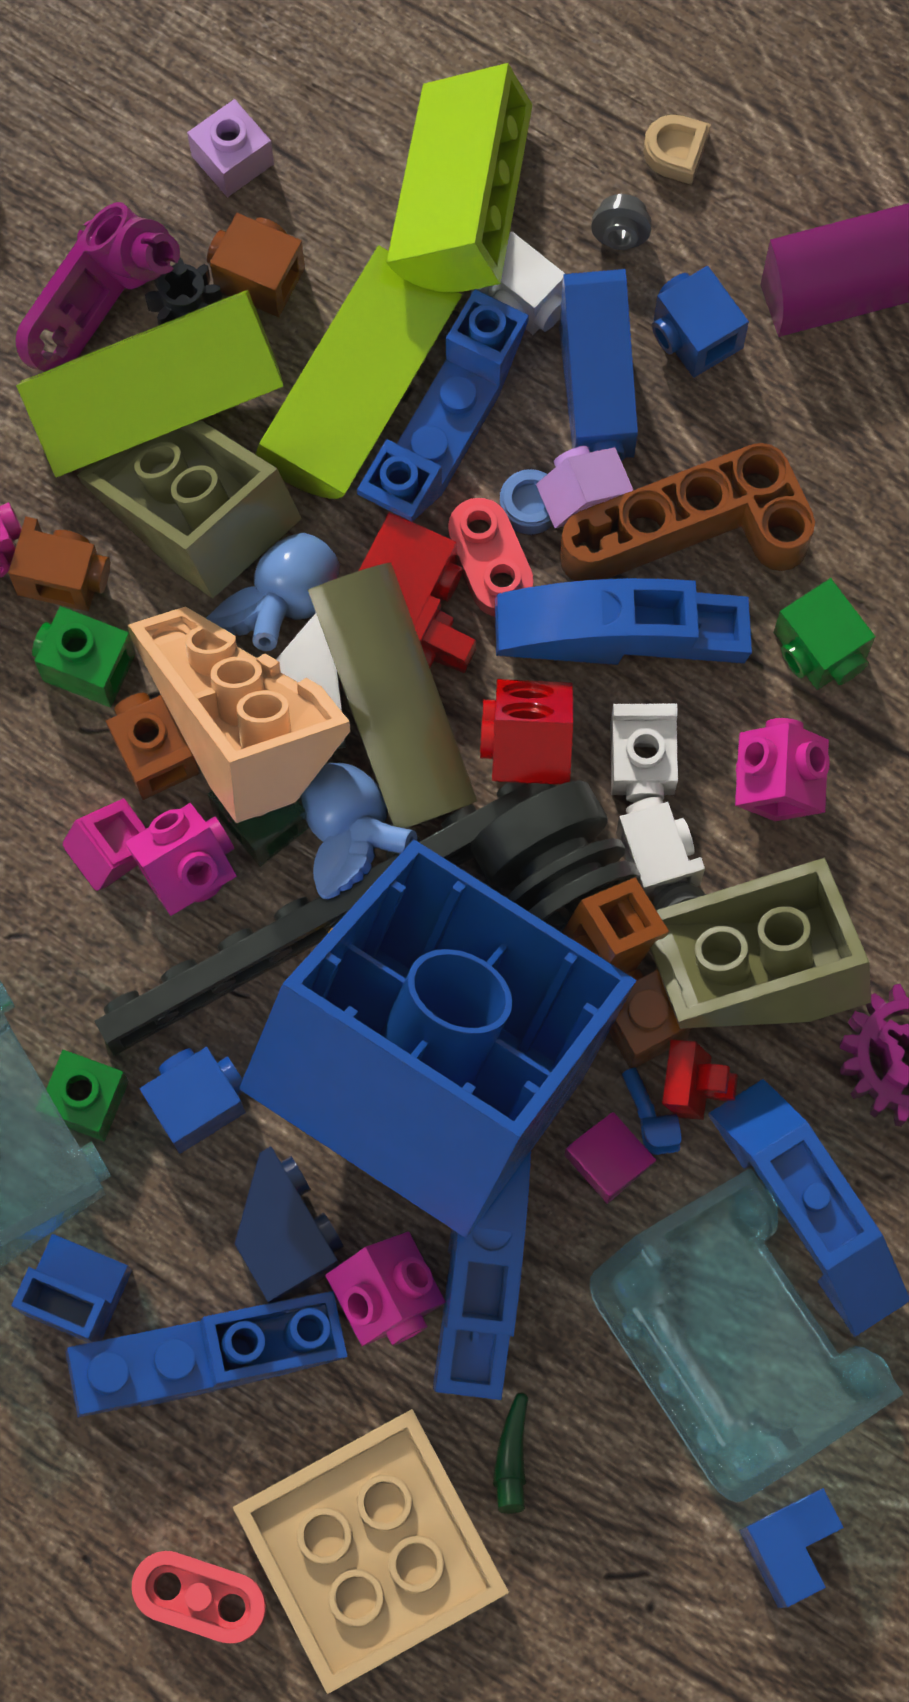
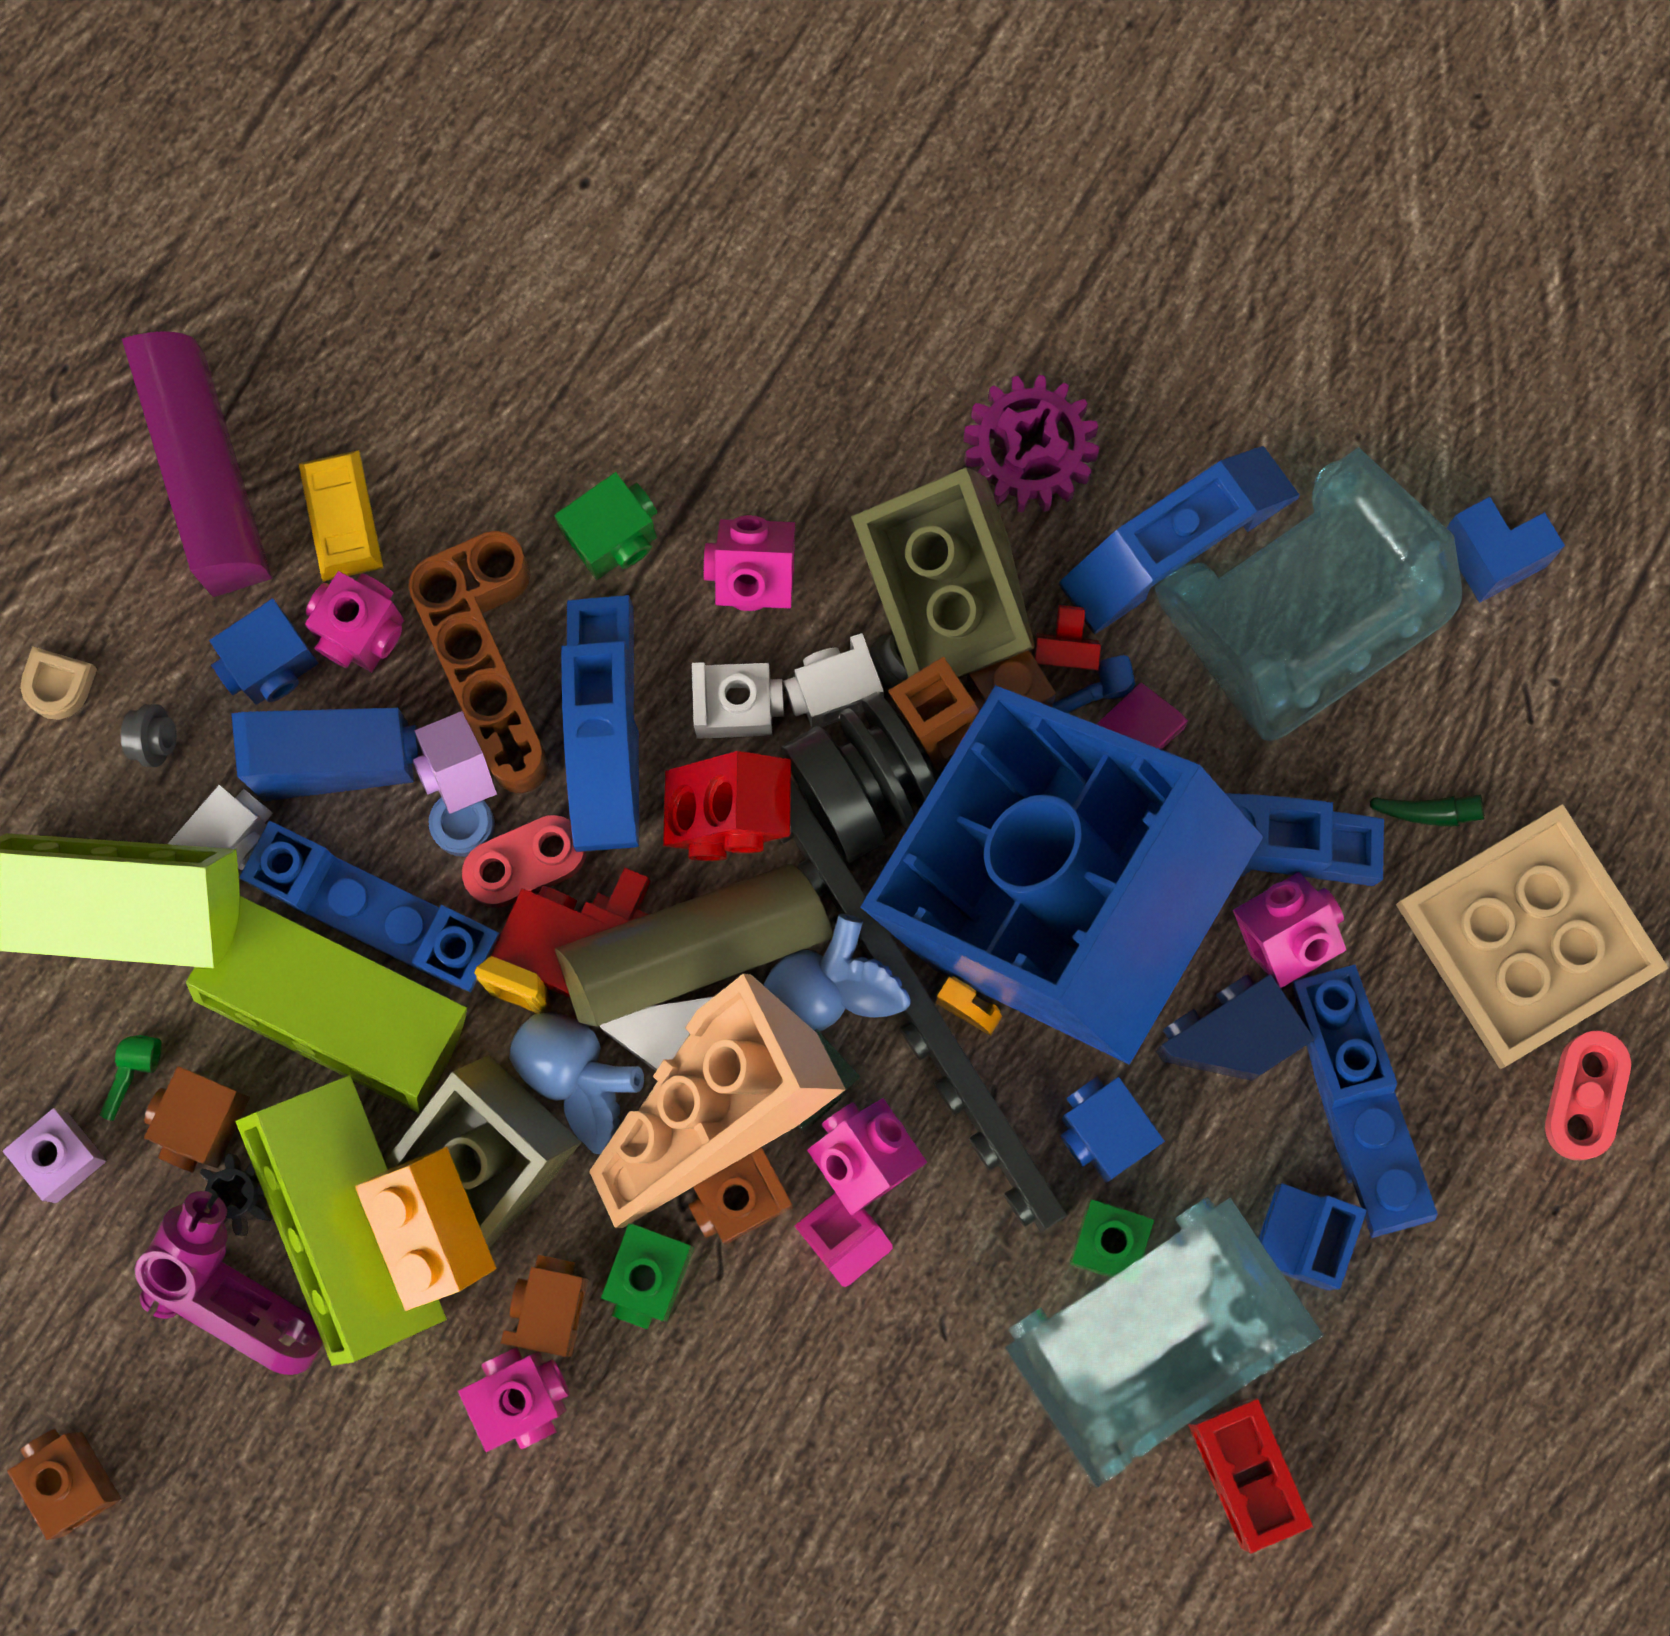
camera: 90 degrees left, 5 degrees up
(133, 448) = (426, 1228): none -> light orange brick
(319, 213) = (132, 1055): none -> green hand
(359, 528) = (513, 985): none -> yellow tile
(728, 399) = (366, 637): none -> dark pink brick
(840, 396) = (340, 515): none -> yellow tile

